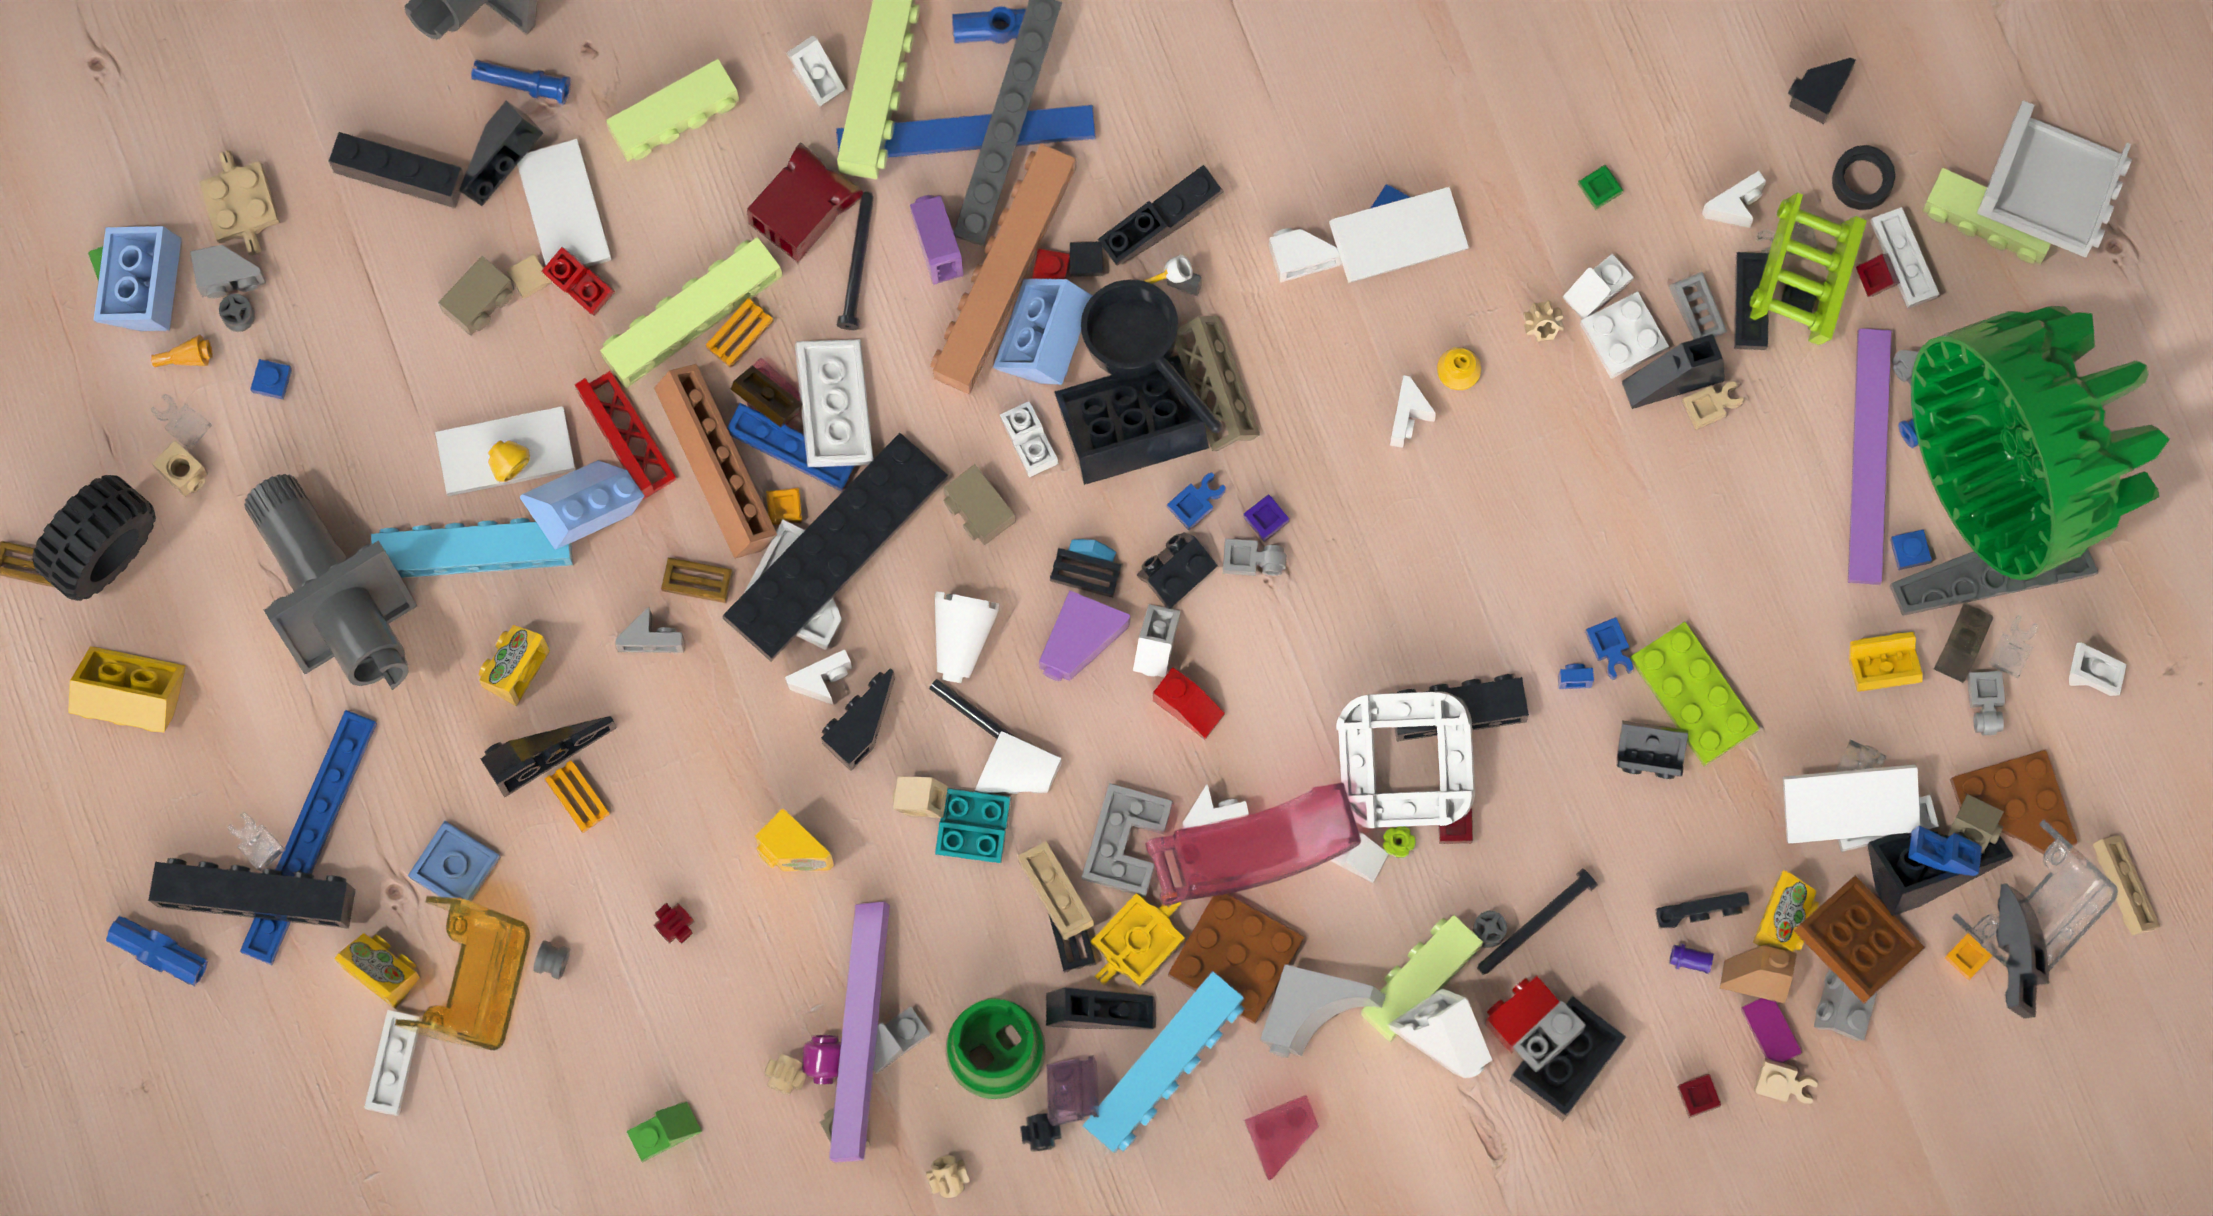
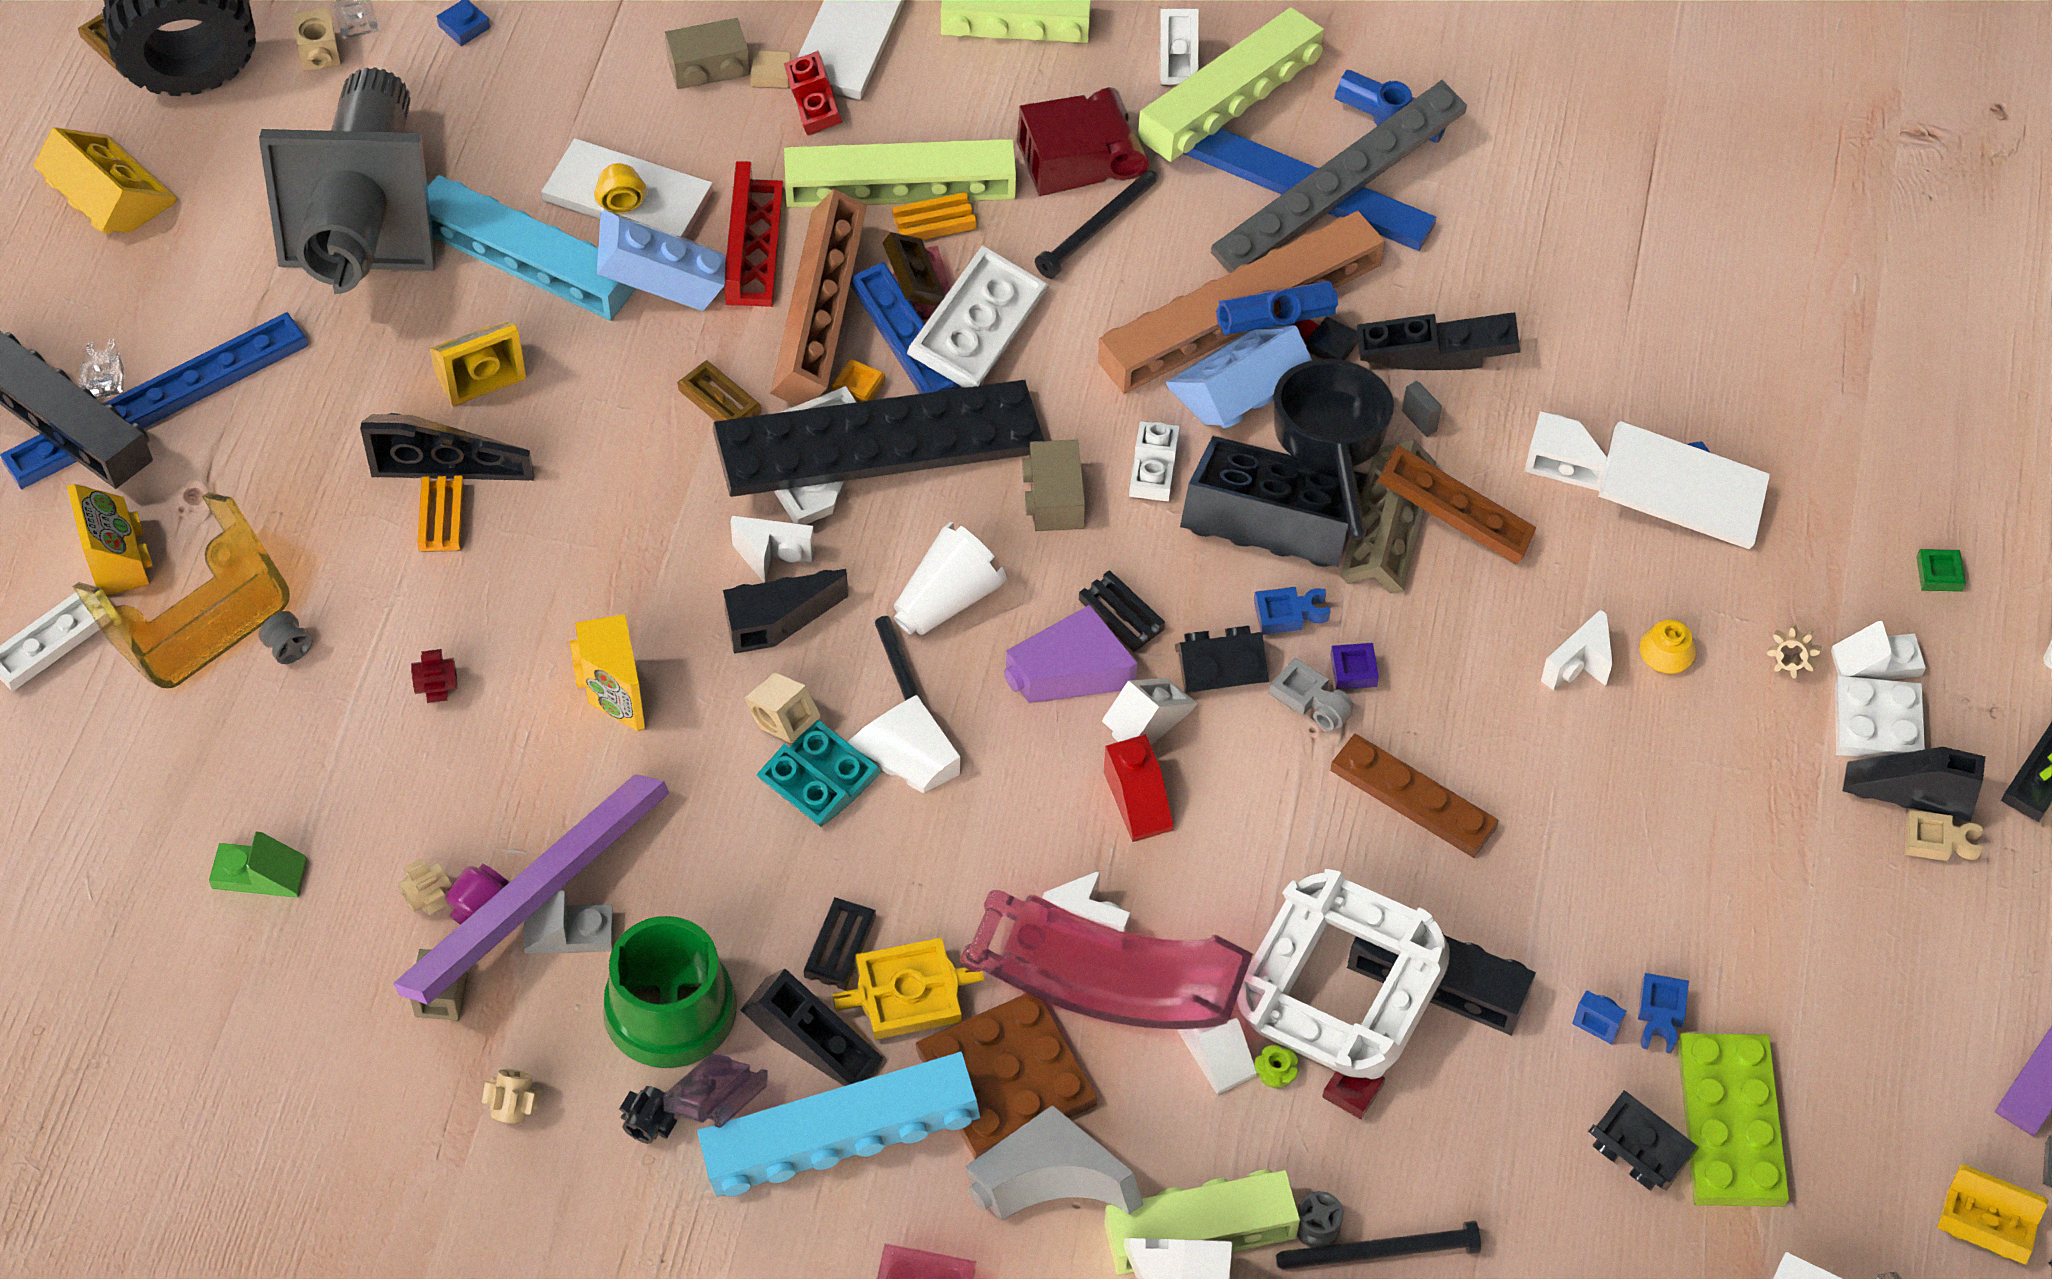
camera: 30 degrees right, 20 degrees down
(454, 864) = (273, 501): medium blue tile -> none
(640, 638) = (627, 412): light grey slope -> none
(936, 239) = (1189, 241): medium lavender slope -> none
(1040, 268) = (1296, 303): none -> blue piece
(1055, 890) = (854, 881): tan plate -> none
(1092, 548) = (1147, 590): dark azure tile -> none
(1106, 856) = (937, 886): light grey plate -> none
(1176, 270) = (1419, 381): white hinge -> none
(1259, 351) = (1456, 504): none -> dark orange plate
(1362, 589) = (1414, 795): none -> dark orange plate
(1704, 292) = (1990, 707): light grey slope -> none

